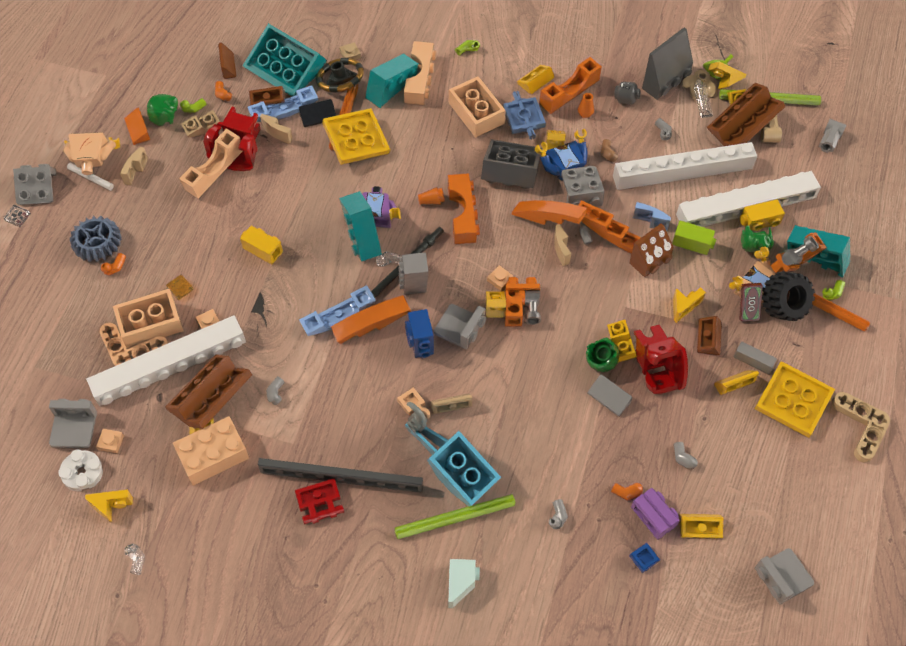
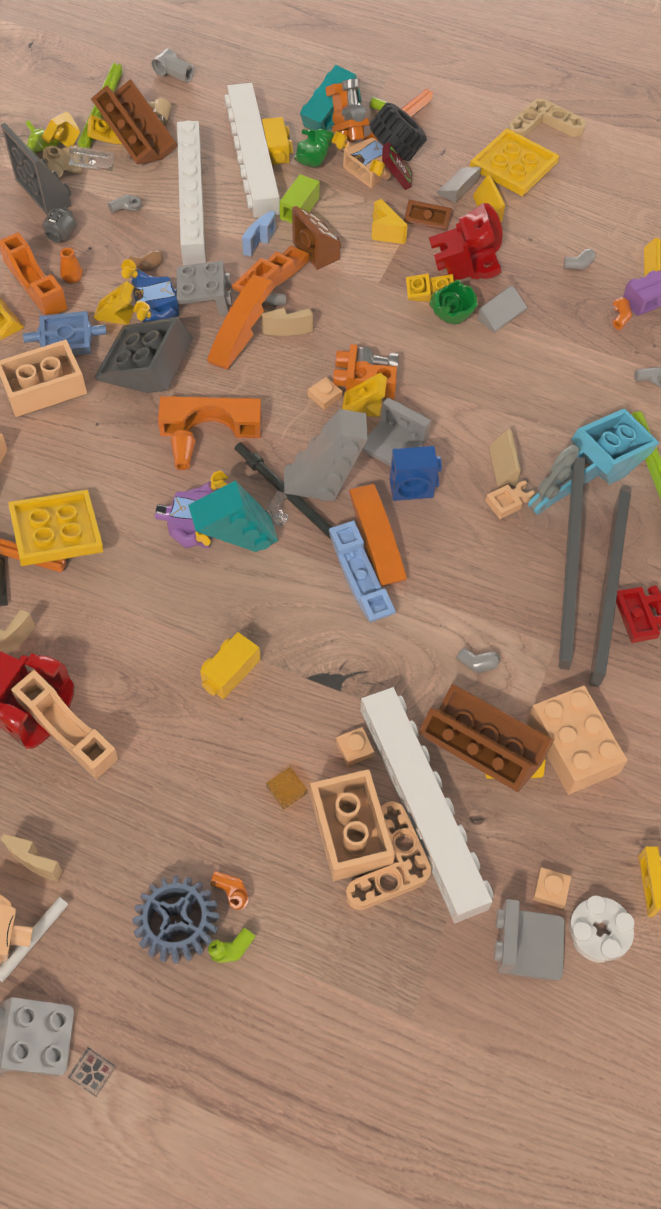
camera: 85 degrees left, 0 degrees up
(77, 269) = (231, 951): none -> lime arm
(350, 440) = (571, 564): none -> dark grey tile

